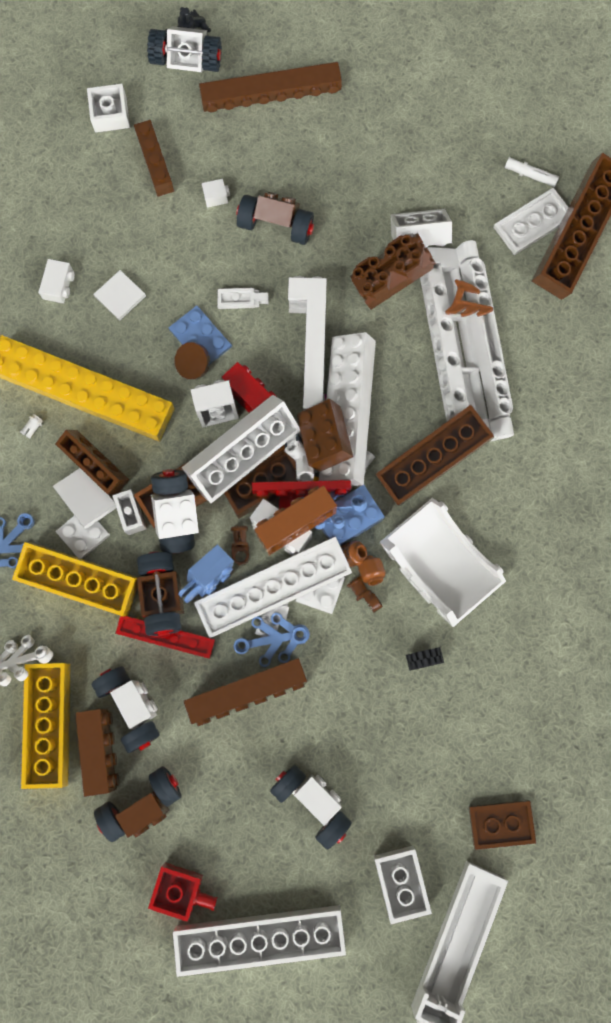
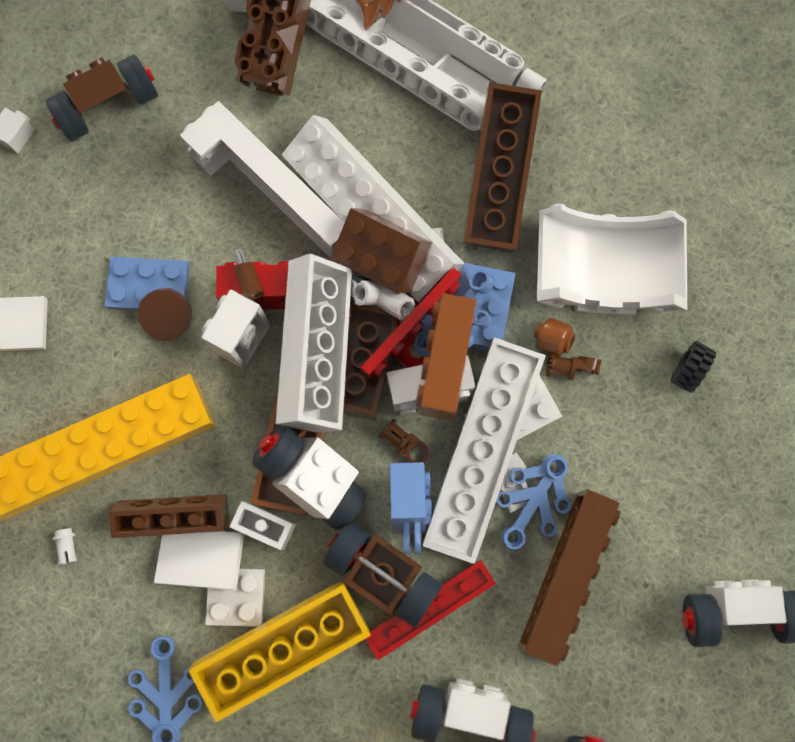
camera: 50 degrees left, 0 degrees up
(241, 298) = (148, 207): white hinge -> none
(245, 382) = (247, 277): none -> reddish brown piece
(354, 552) = (524, 334): dark orange head -> none

